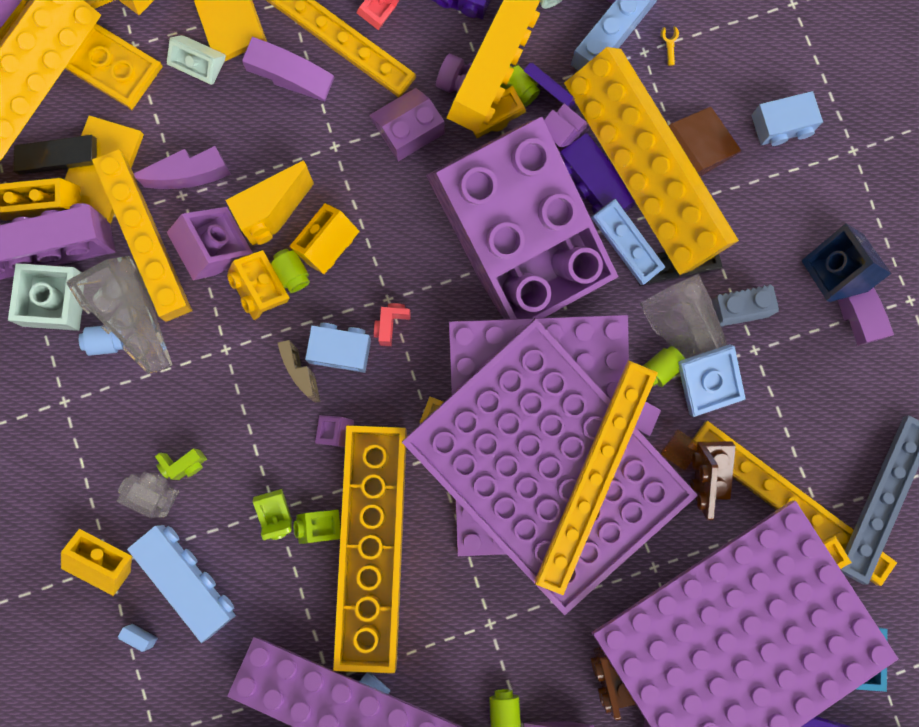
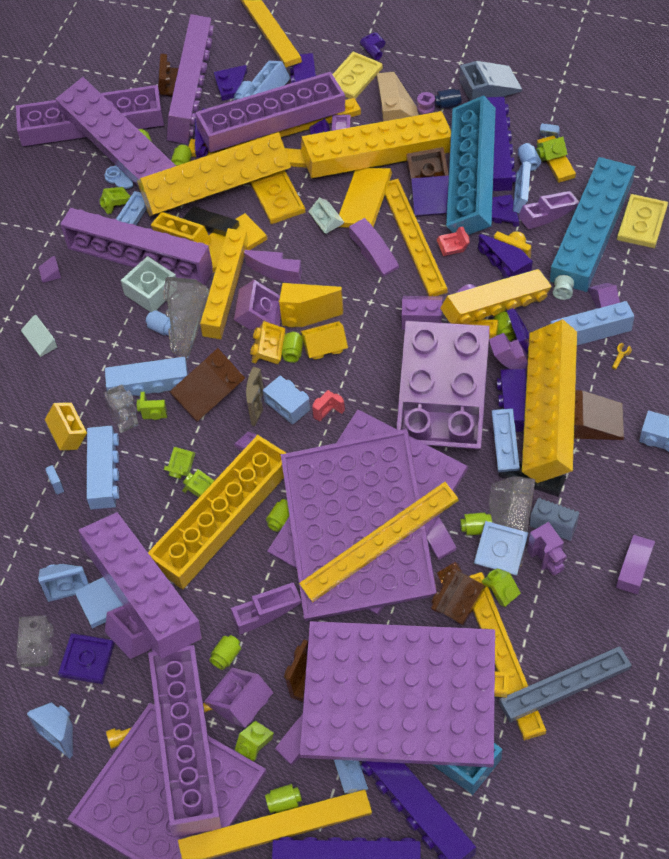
camera: 45 degrees right, 25 degrees down
(144, 427) = (147, 376): none -> light blue brick
(229, 392) = (207, 385): none -> reddish brown slope
(440, 504) = (278, 515): none -> lime brick
(510, 629) = (265, 608): none -> medium lavender slope
(741, 425) = (502, 586): none -> lime bracket
(767, 349) = (548, 546): none -> medium lavender hips
(845, 265) = (640, 531): dark blue slope -> none

